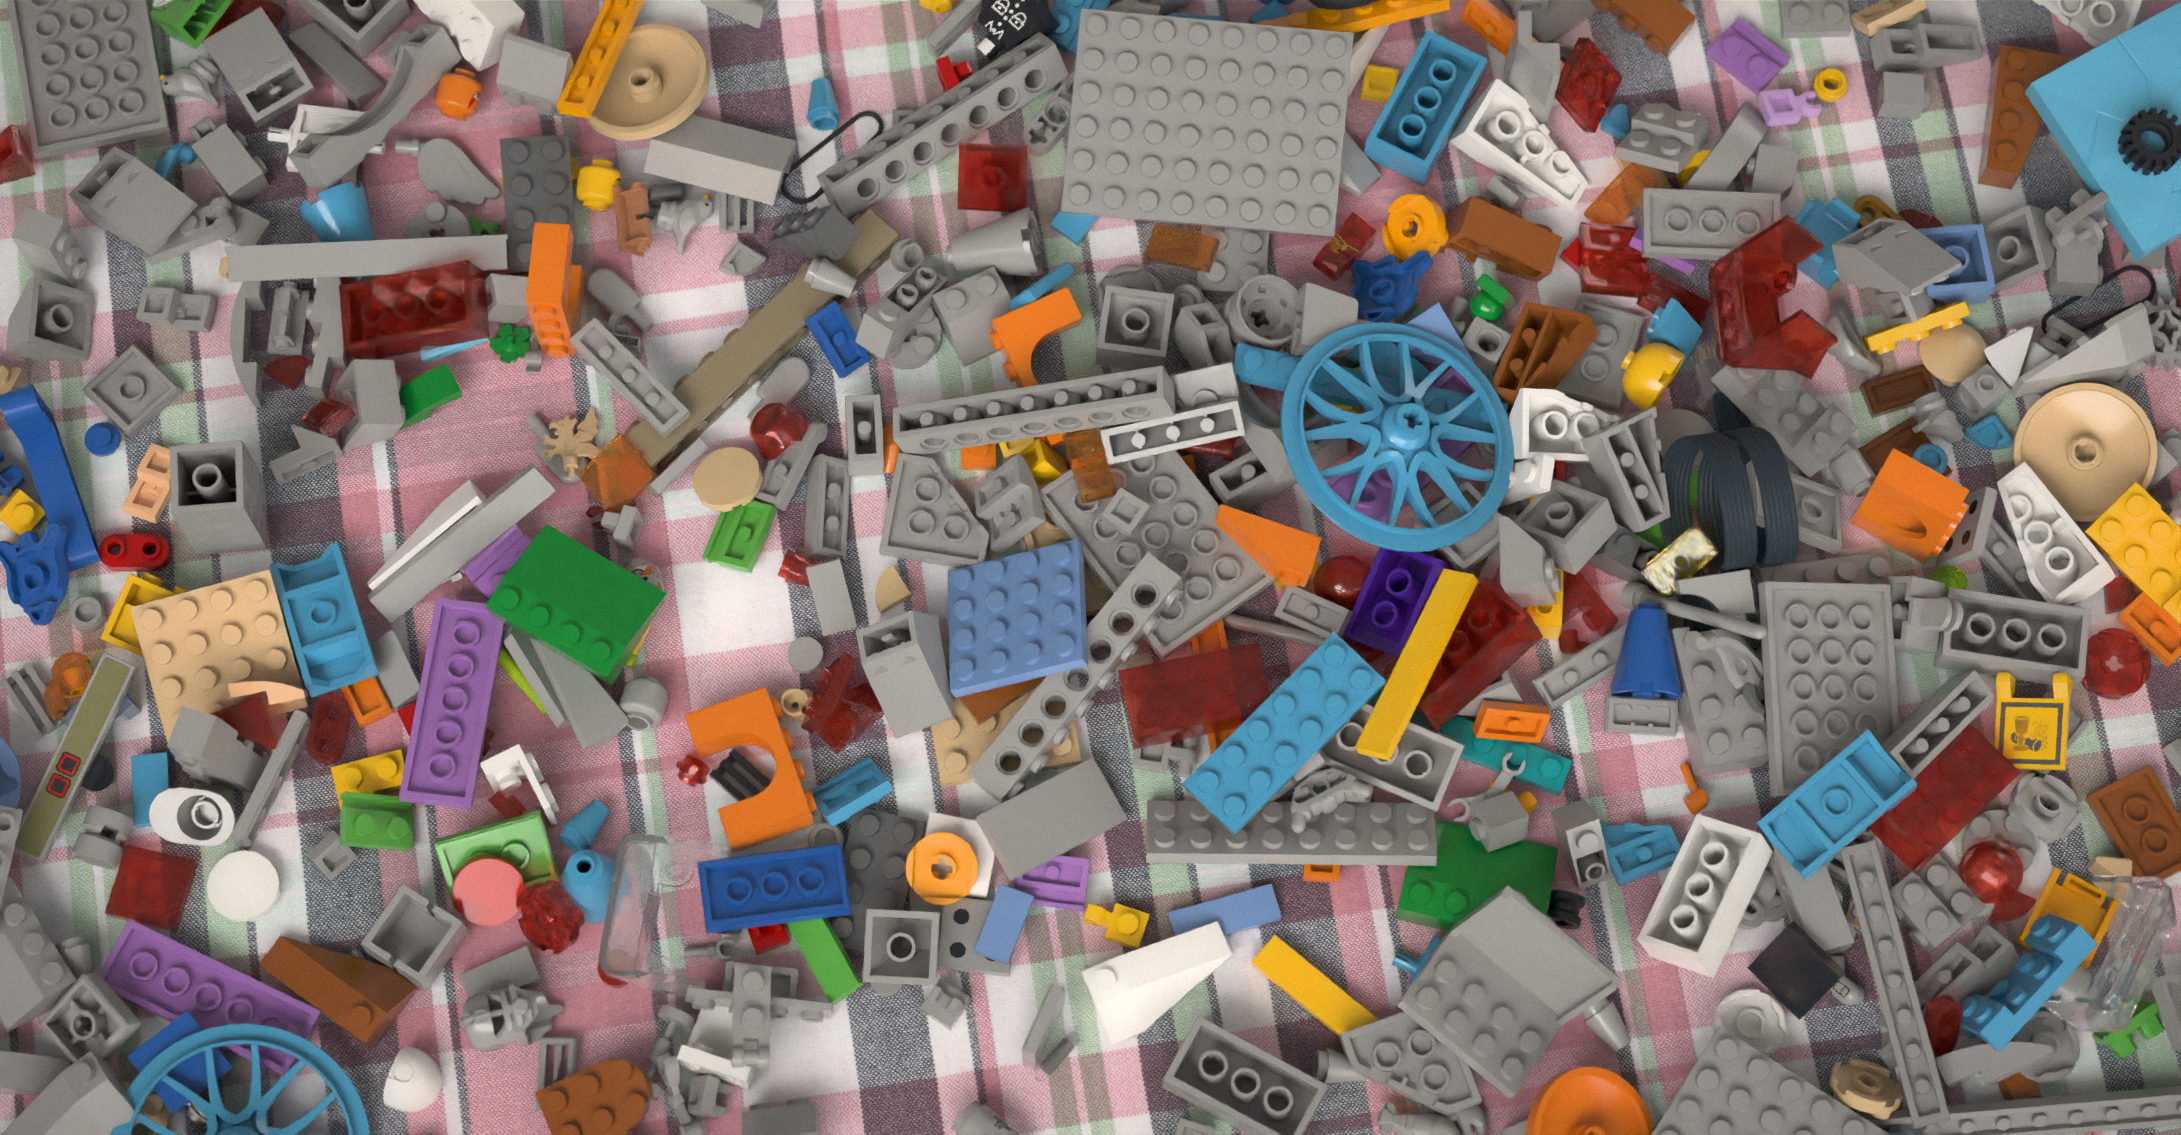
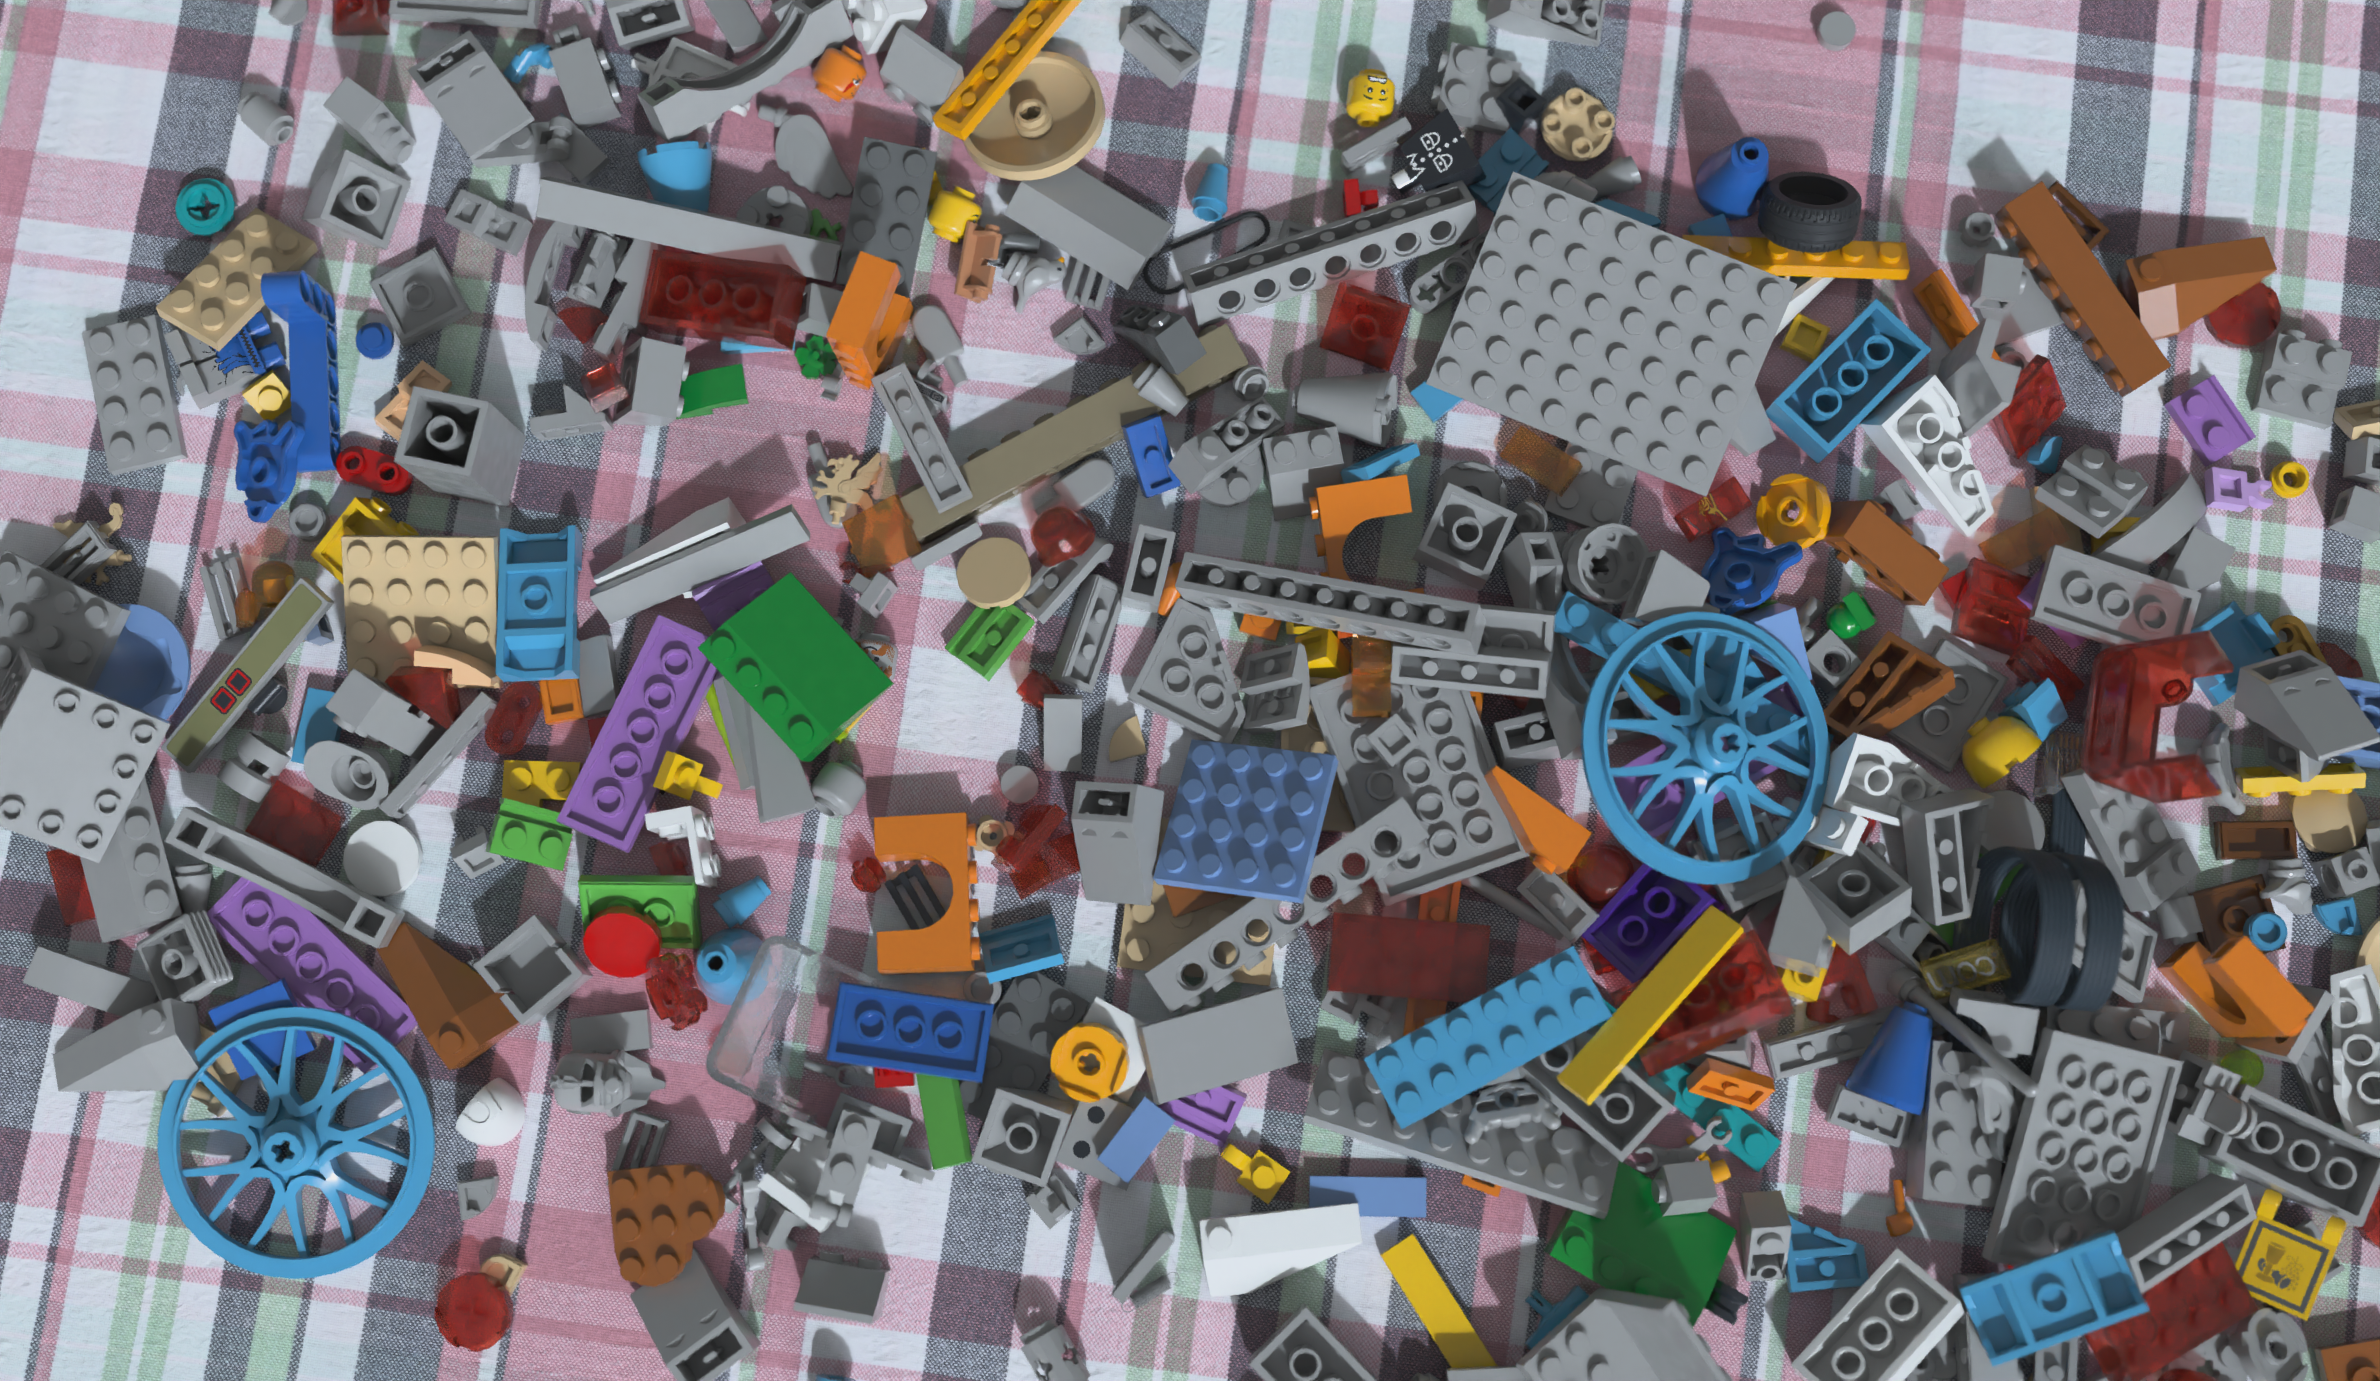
camera: 20 degrees right, 10 degrees up
(145, 916) = (286, 875): none -> light grey arch
(499, 730) = (681, 776): none -> yellow plate

